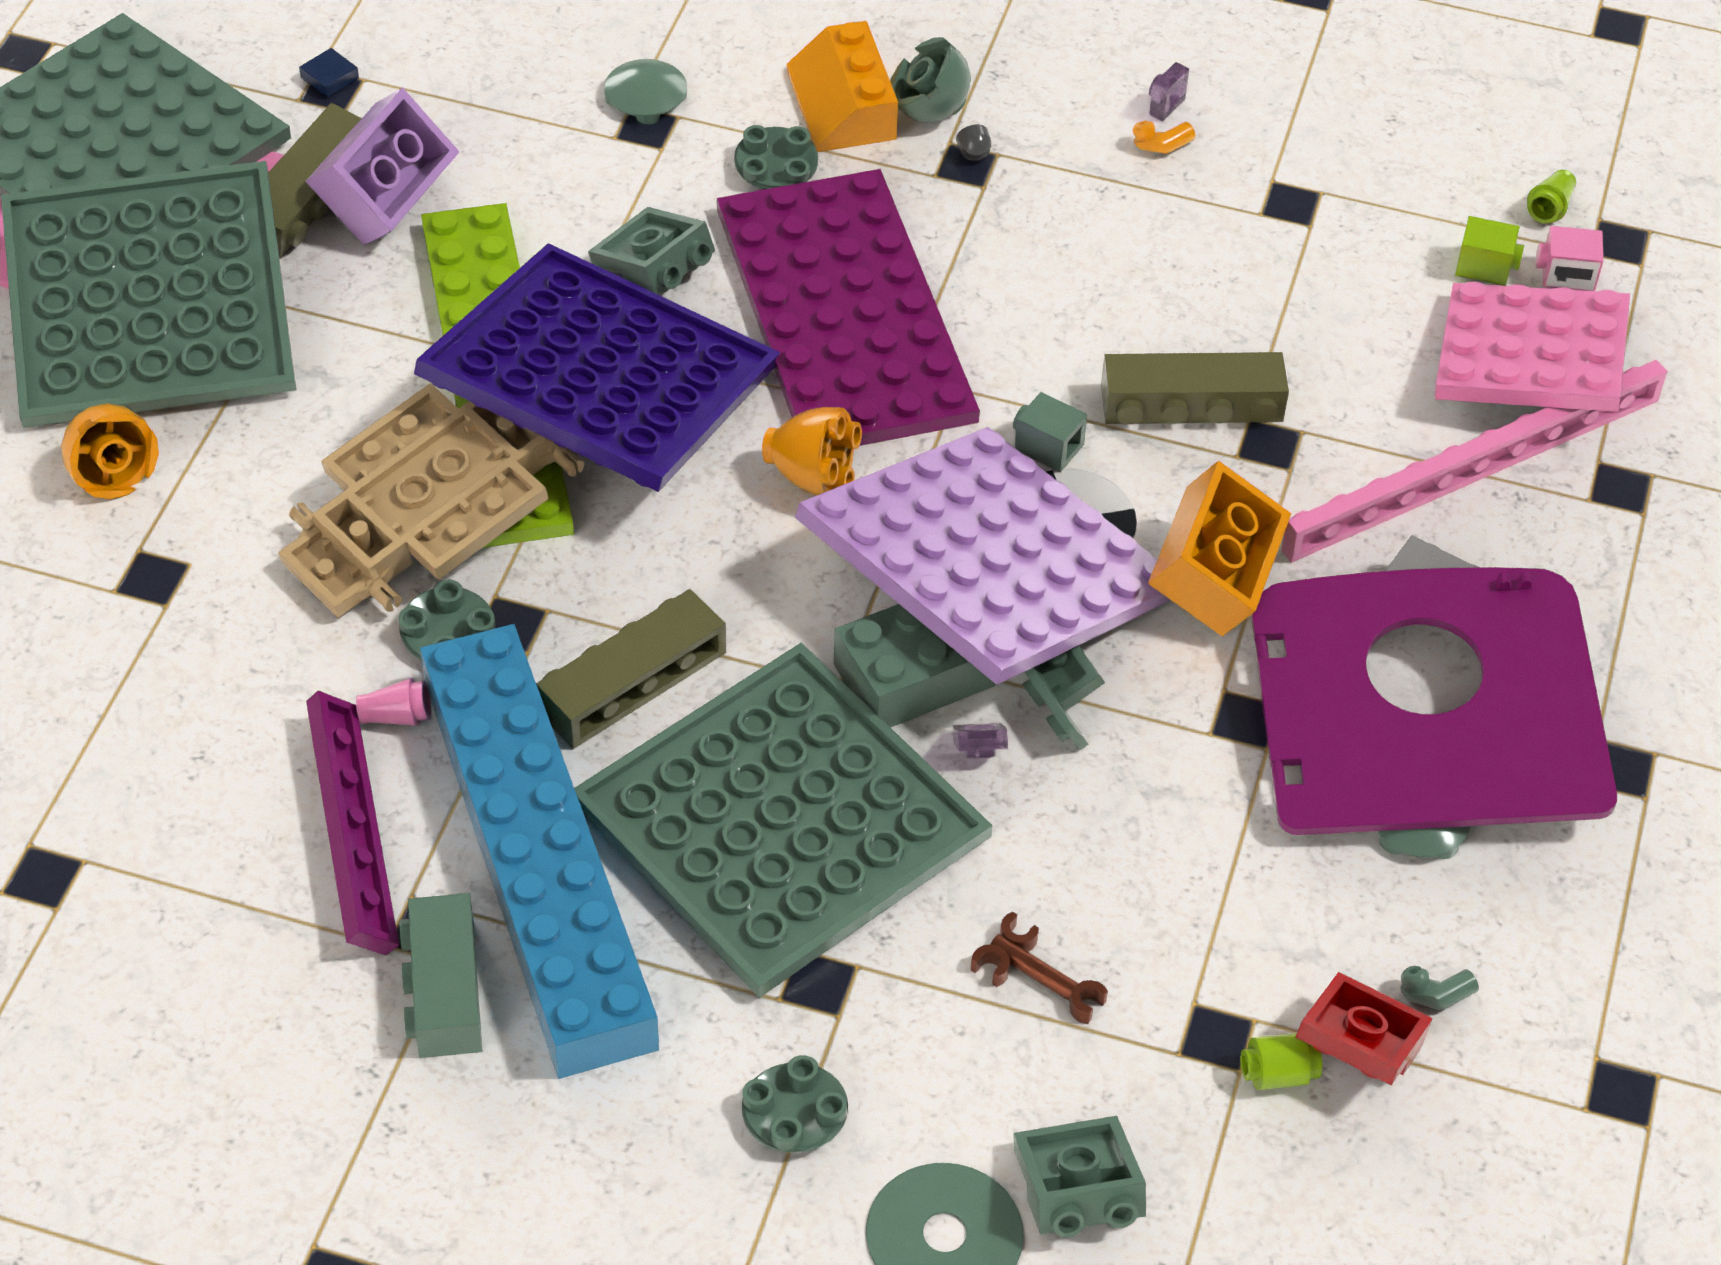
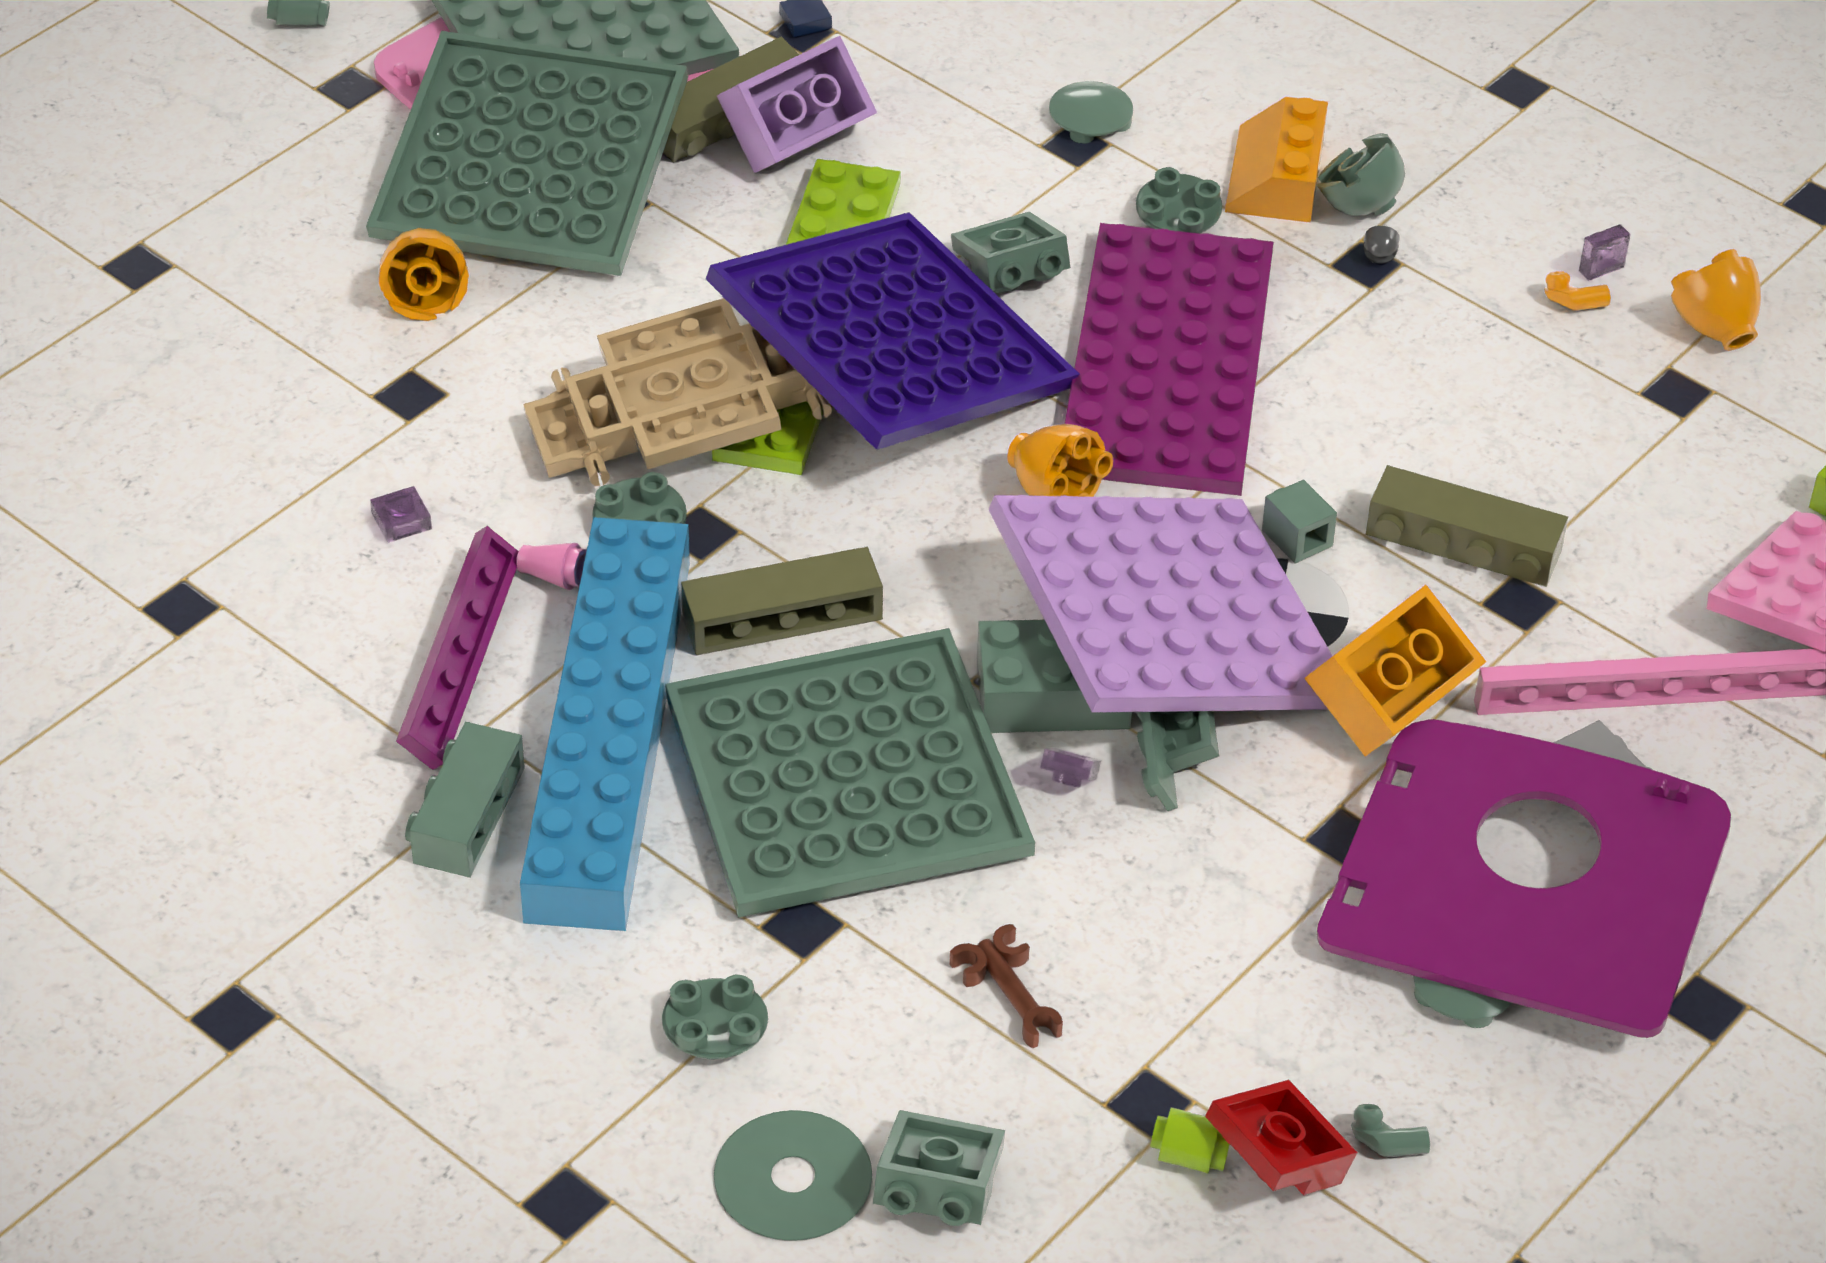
camera: 25 degrees right, 5 degrees down
(213, 704) = (400, 514): none -> clear purple plate
(1295, 108) = (1721, 299): none -> light orange piece

